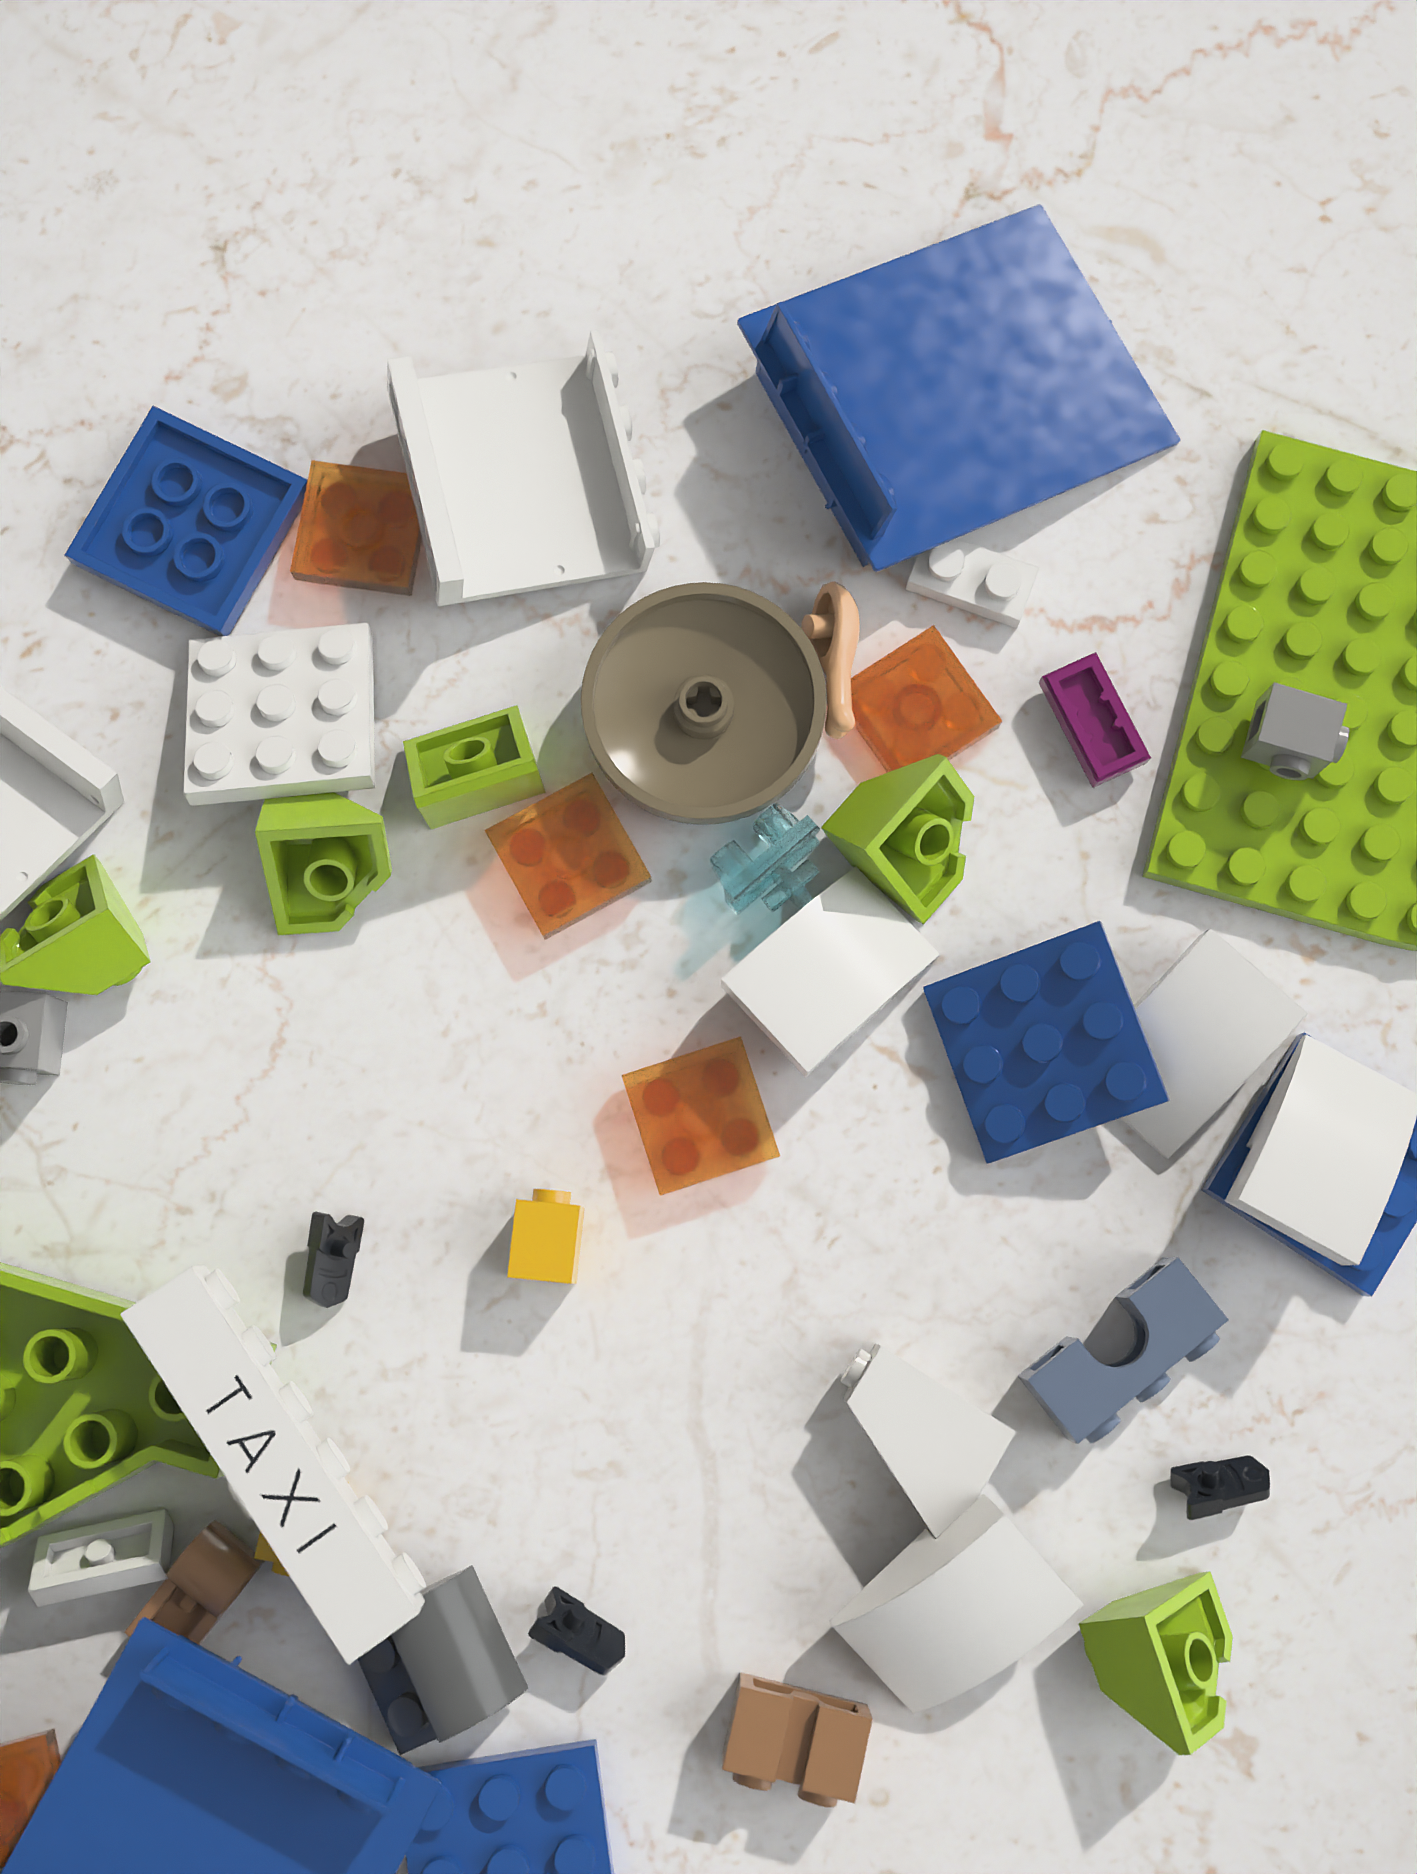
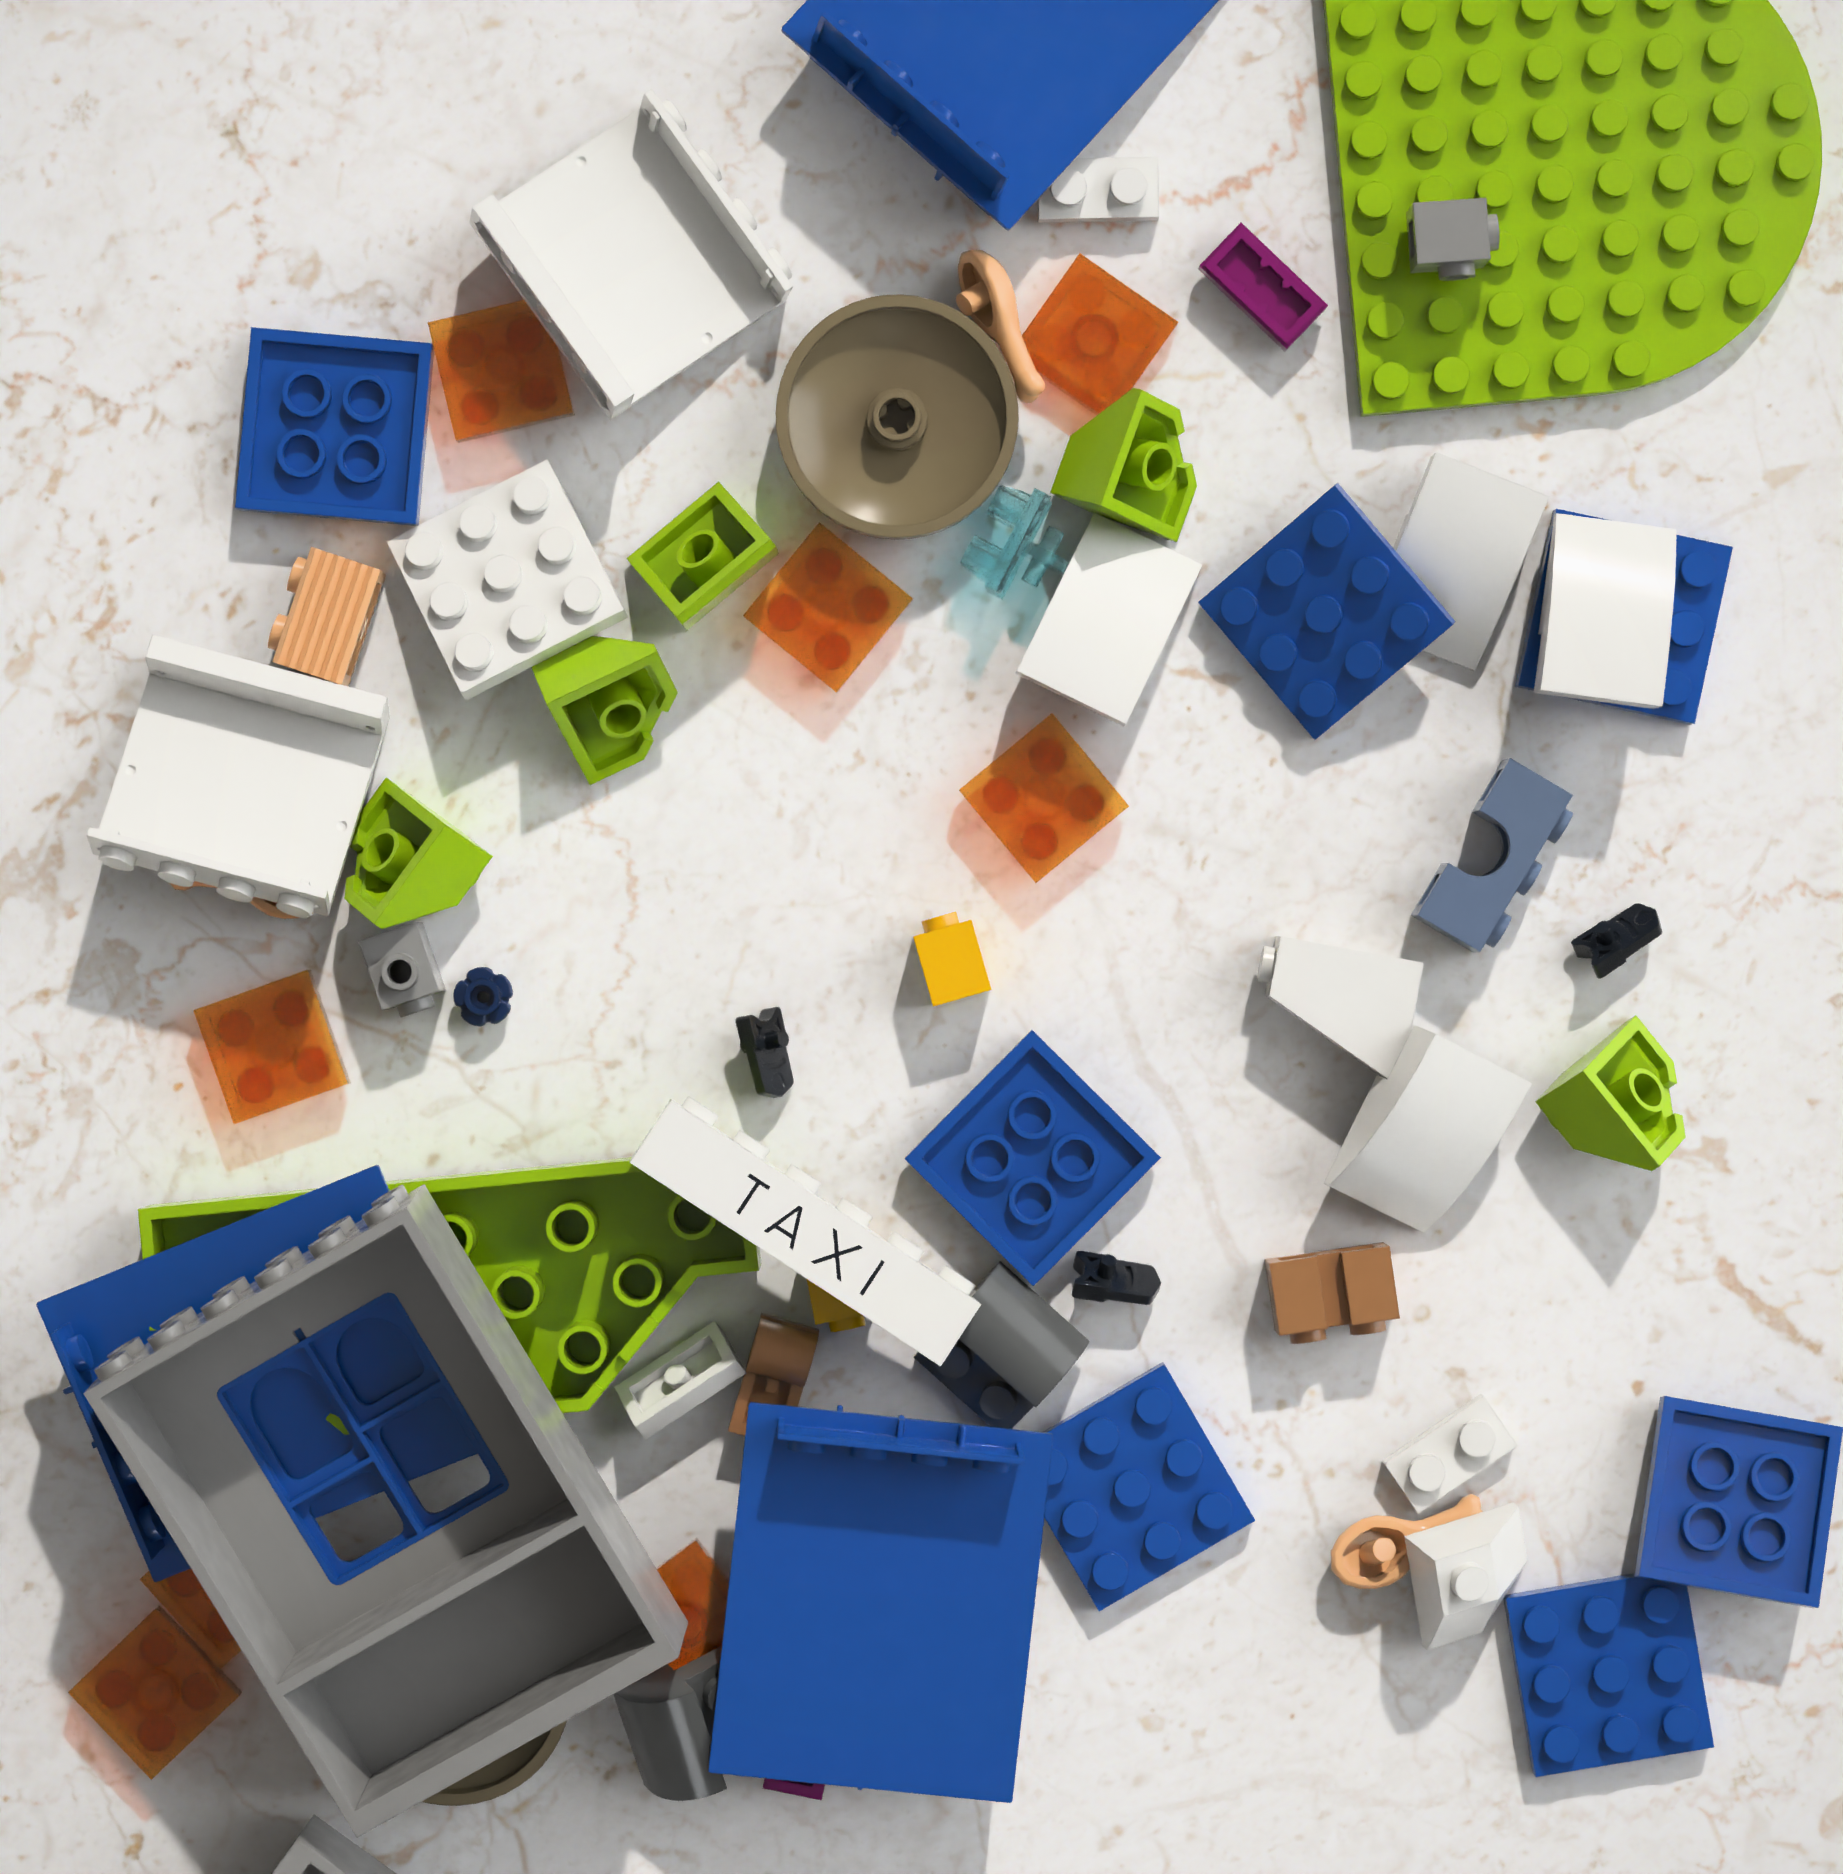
camera: 25 degrees left, 10 degrees up
(102, 1100) = (499, 992): none -> dark blue plate
(103, 684) = (326, 616): none -> light nougat brick
(546, 1473) = (1032, 1157): none -> blue plate

